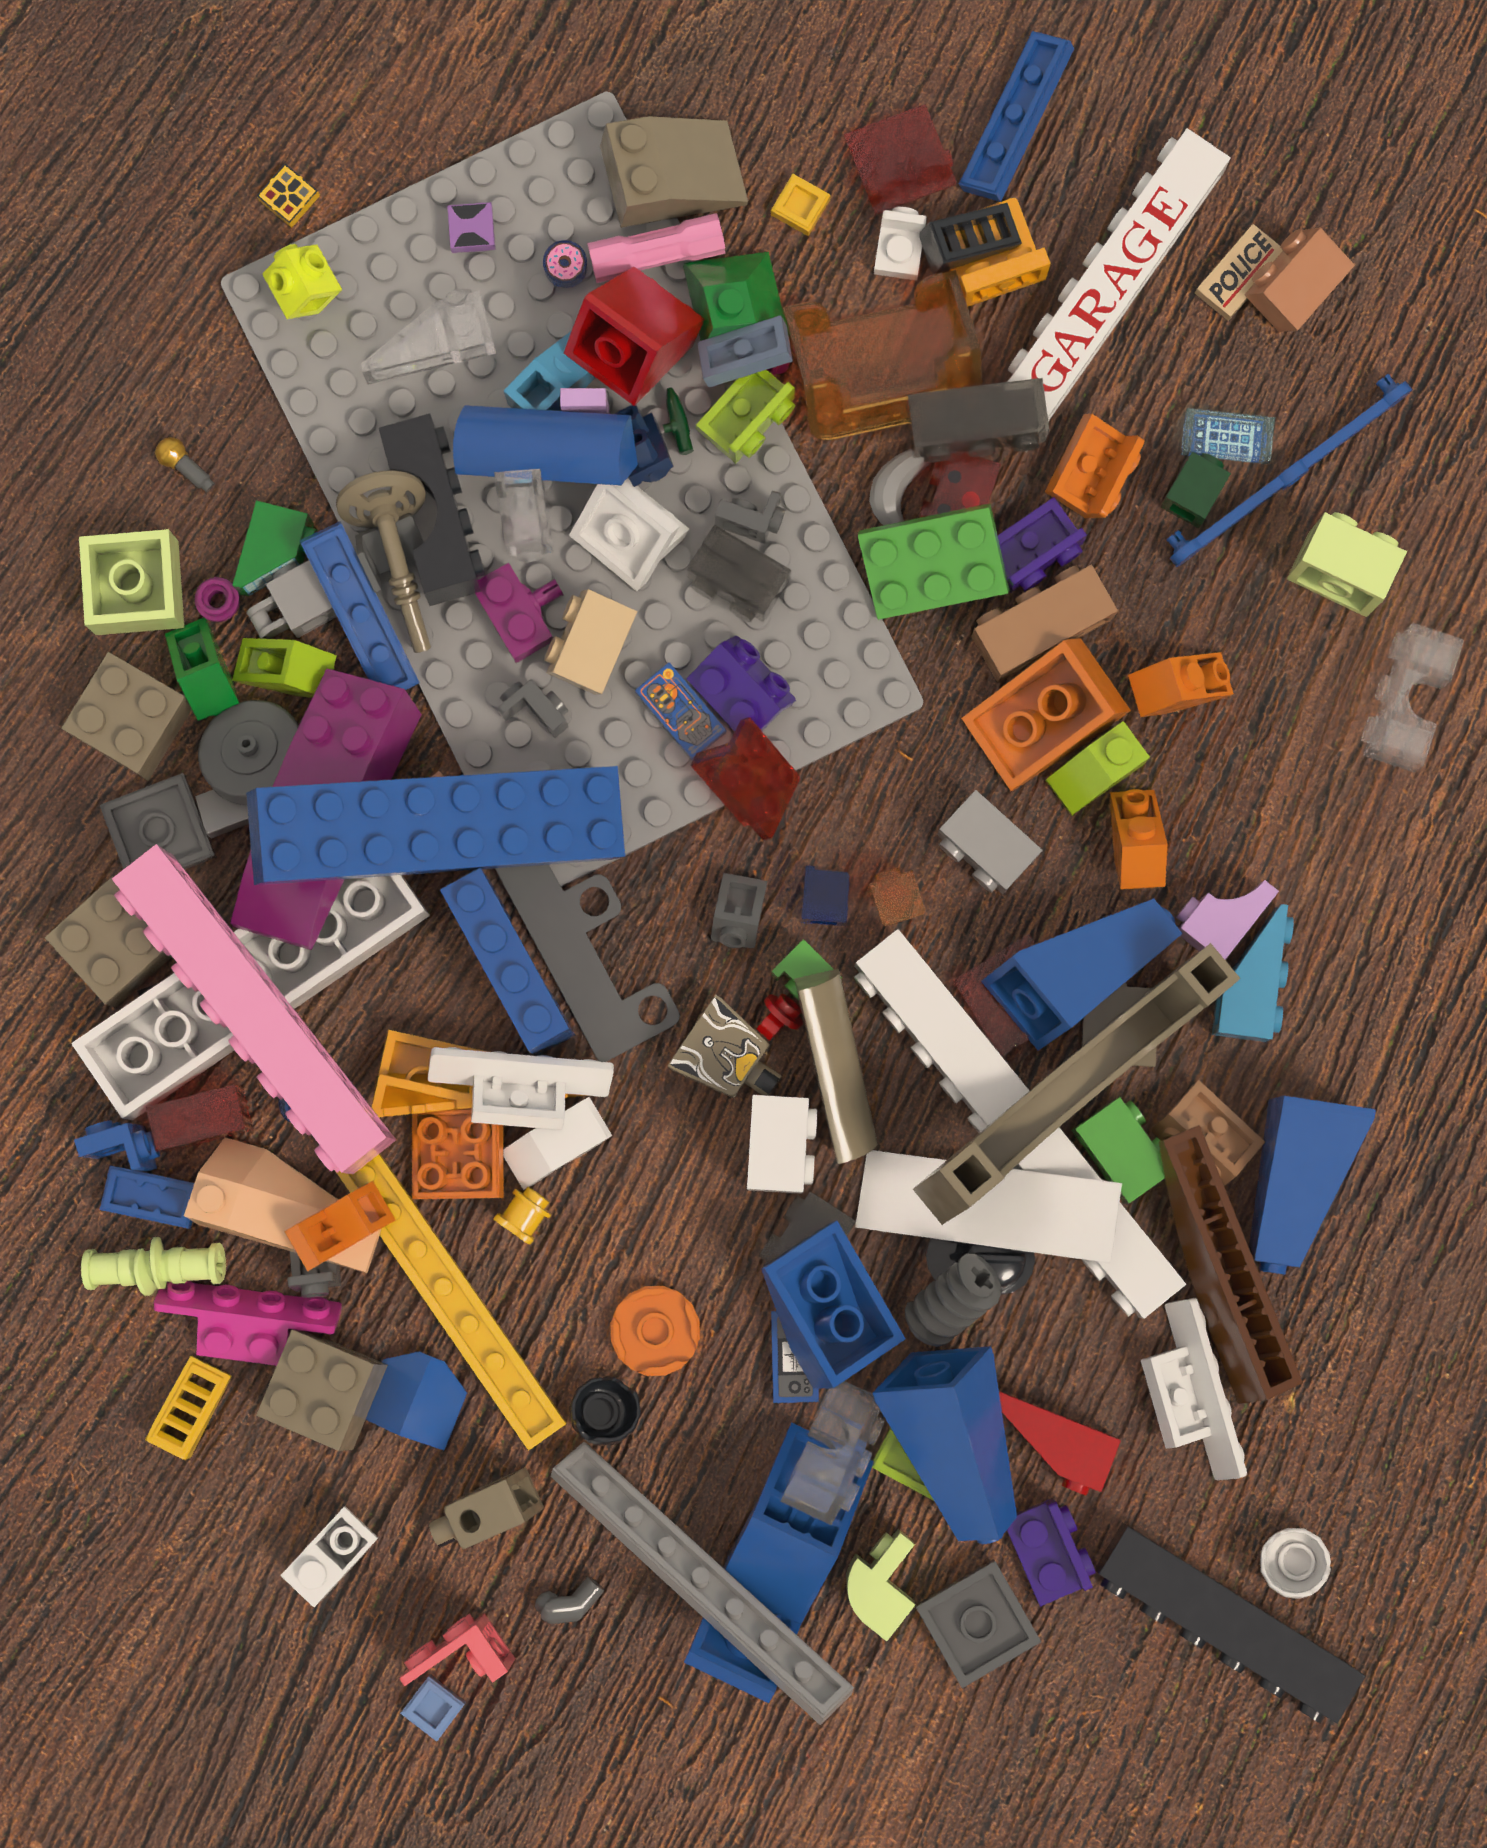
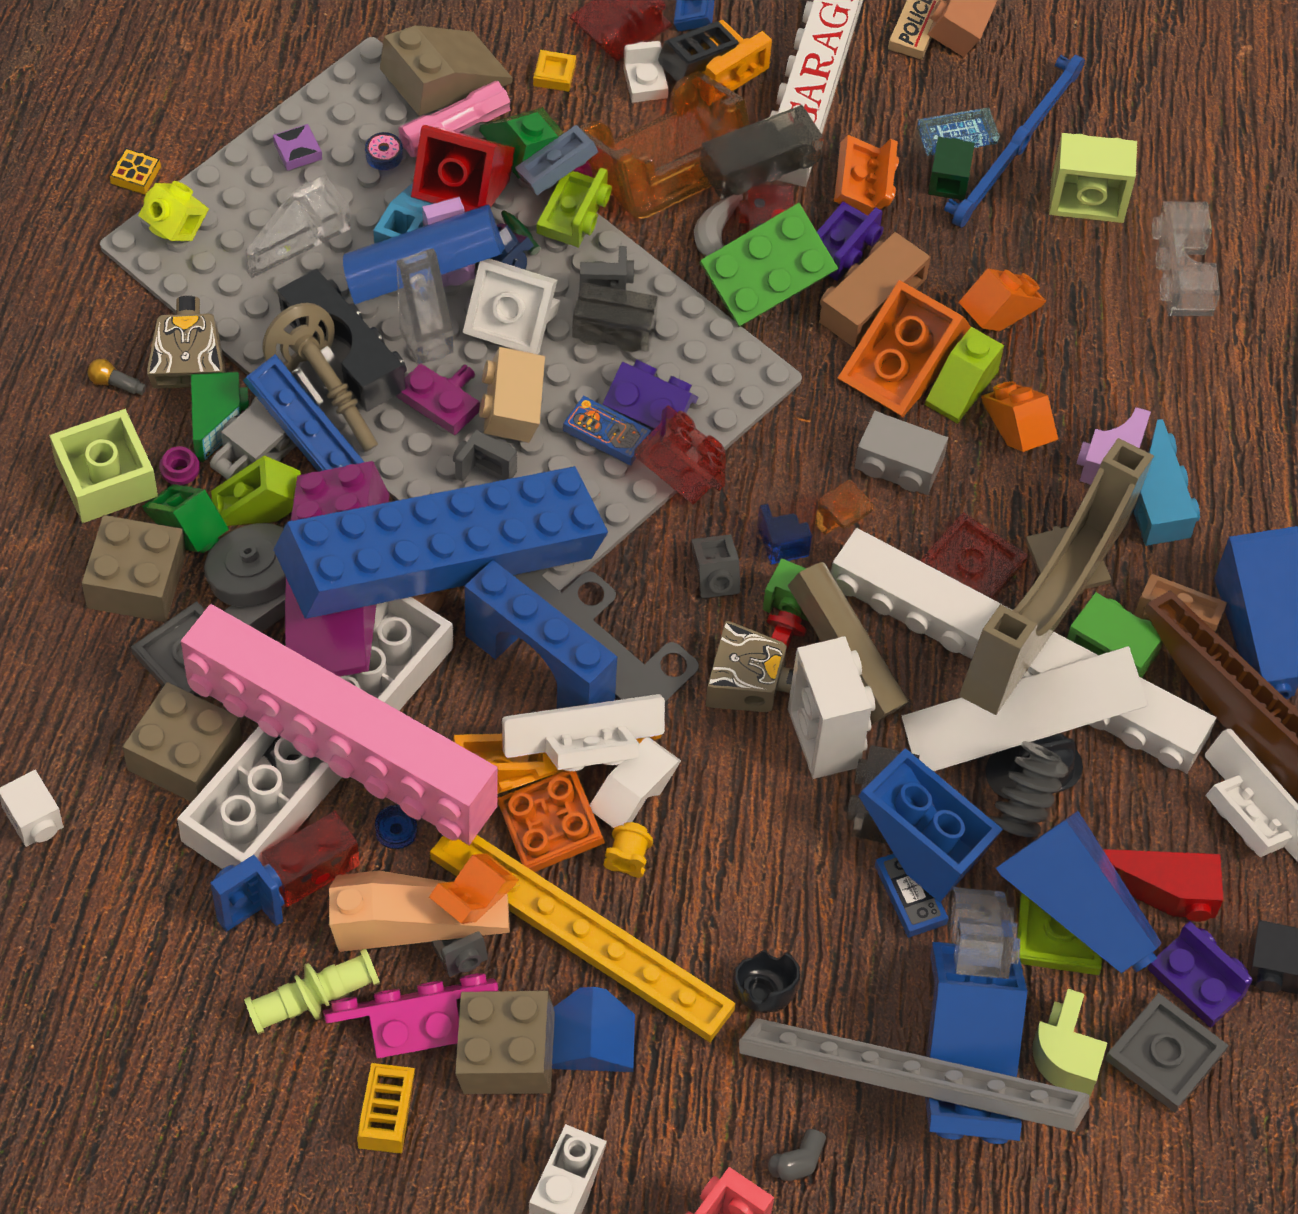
camera: 25 degrees left, 25 degrees down
(147, 1196) = (287, 940): blue plate -> none
(266, 459) = (184, 346): none -> dark tan torso
(499, 1506) = (704, 1078): dark tan torso -> none
(655, 1330) = (781, 911): orange tile -> none
(1078, 969) = (1016, 511): blue slope -> none

